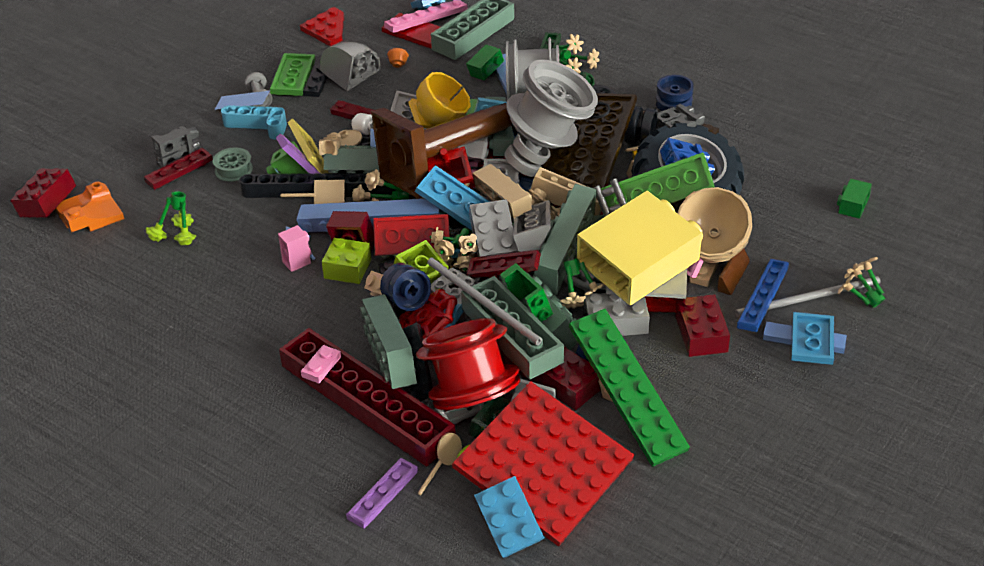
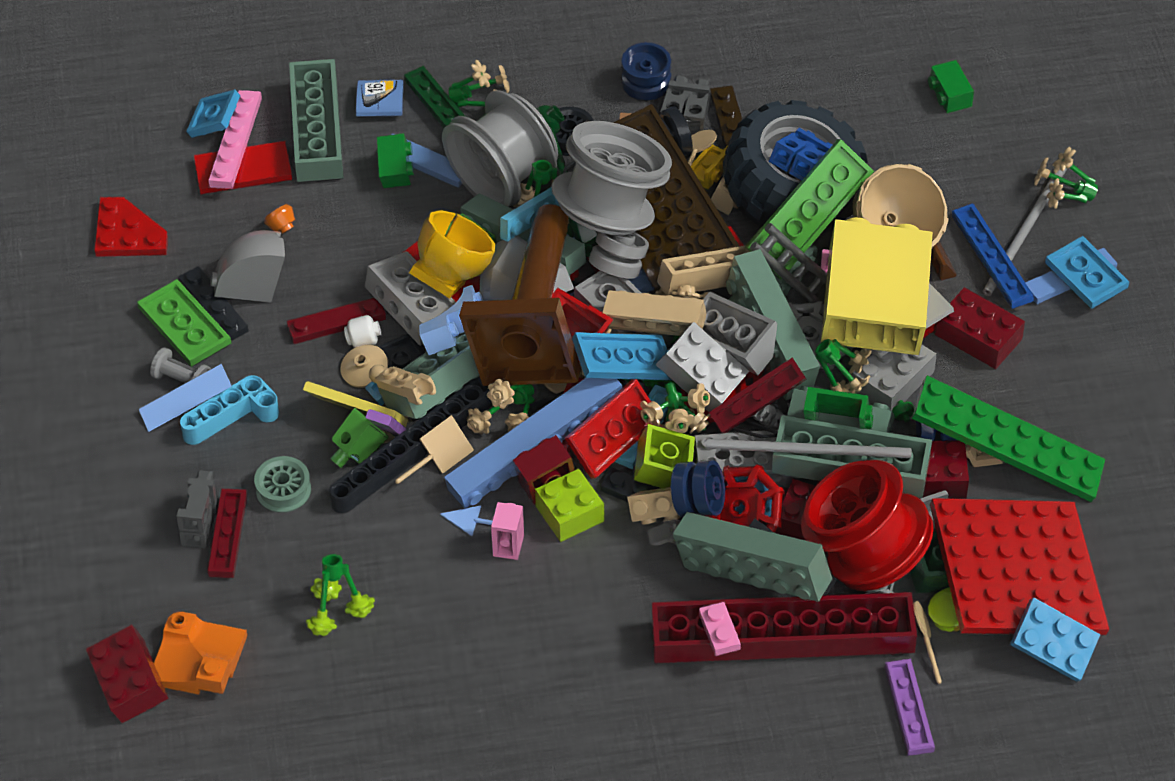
camera: 45 degrees left, 10 degrees up
(523, 35) = (379, 98): none -> medium blue slope

